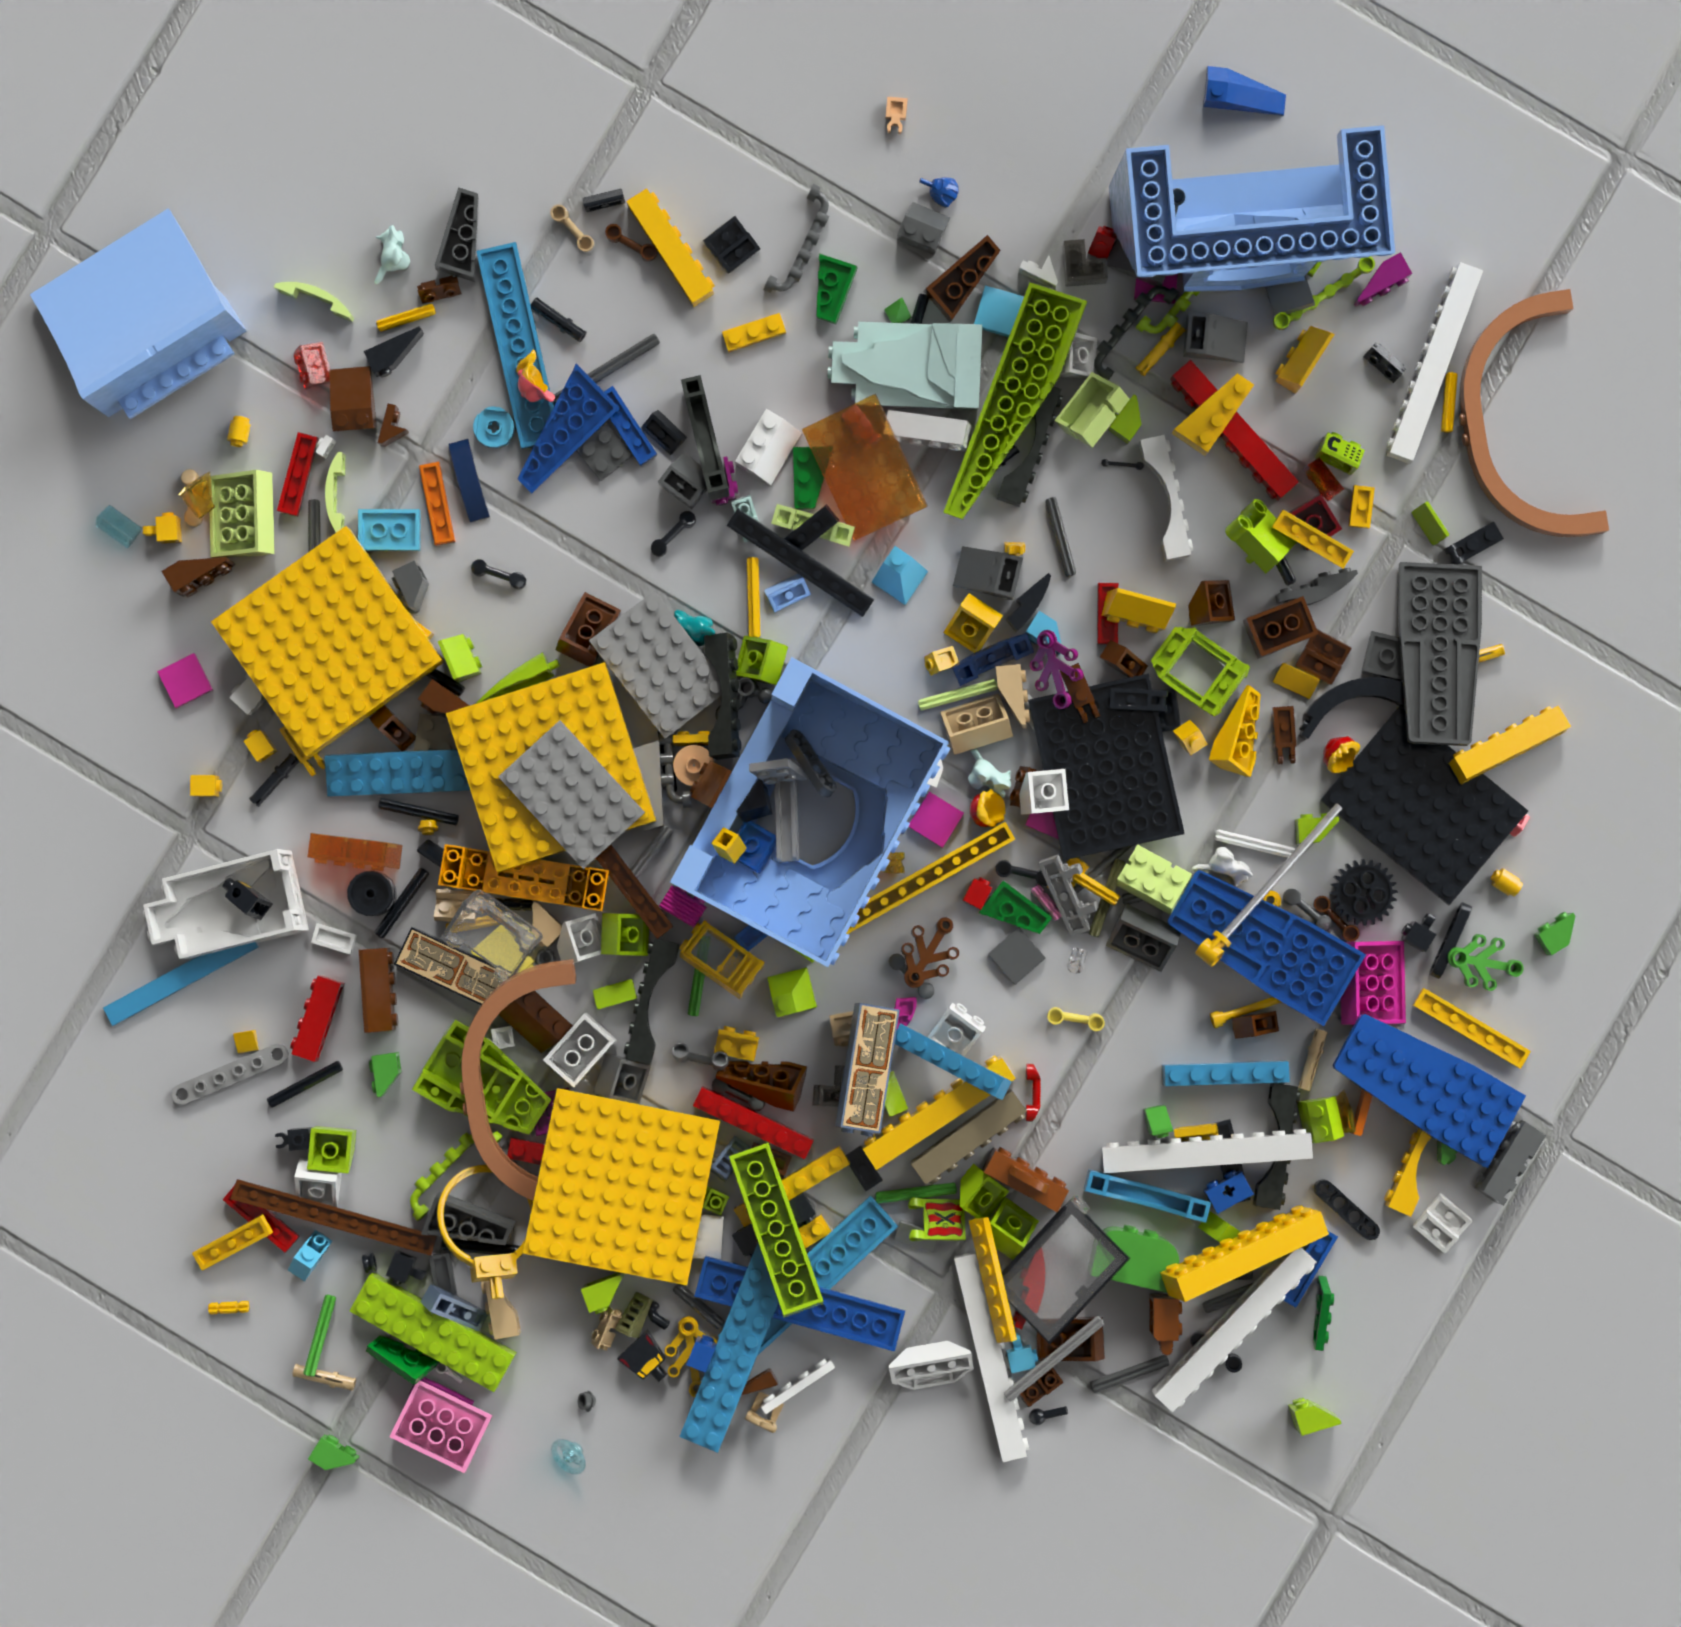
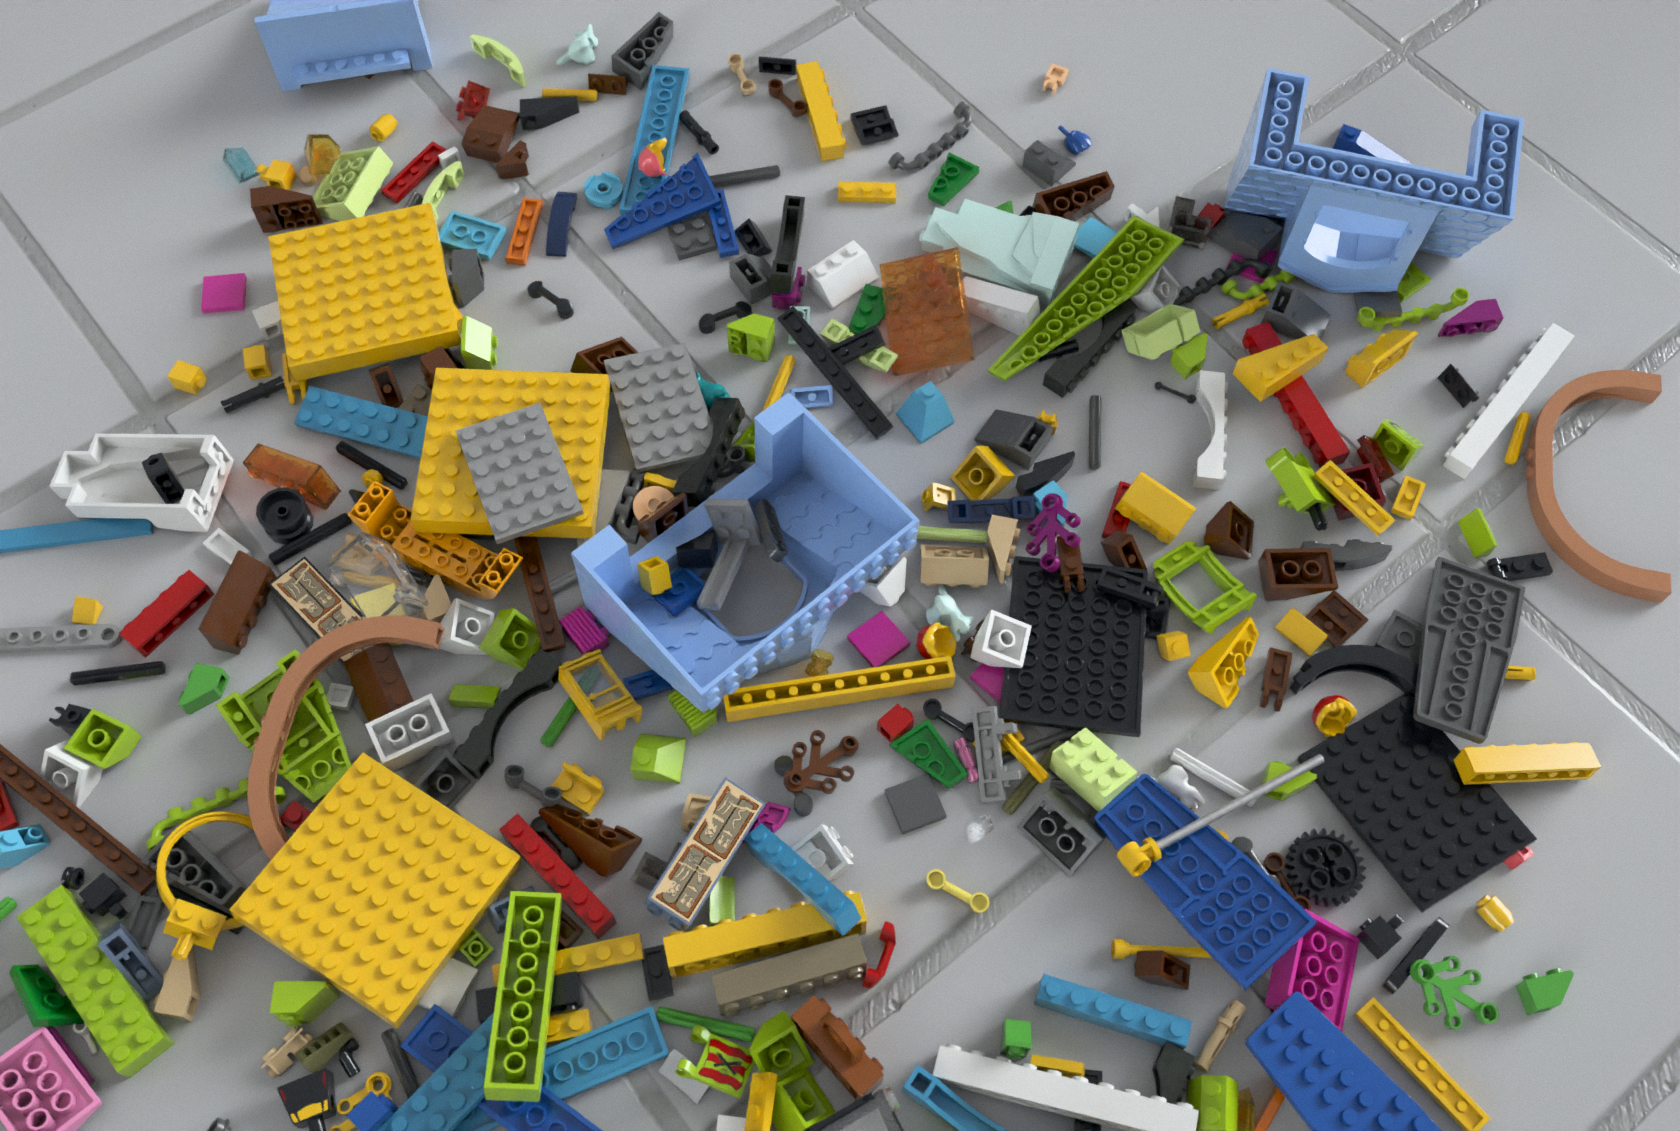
camera: 15 degrees right, 25 degrees down
(713, 554) = (752, 337): none -> lime slope

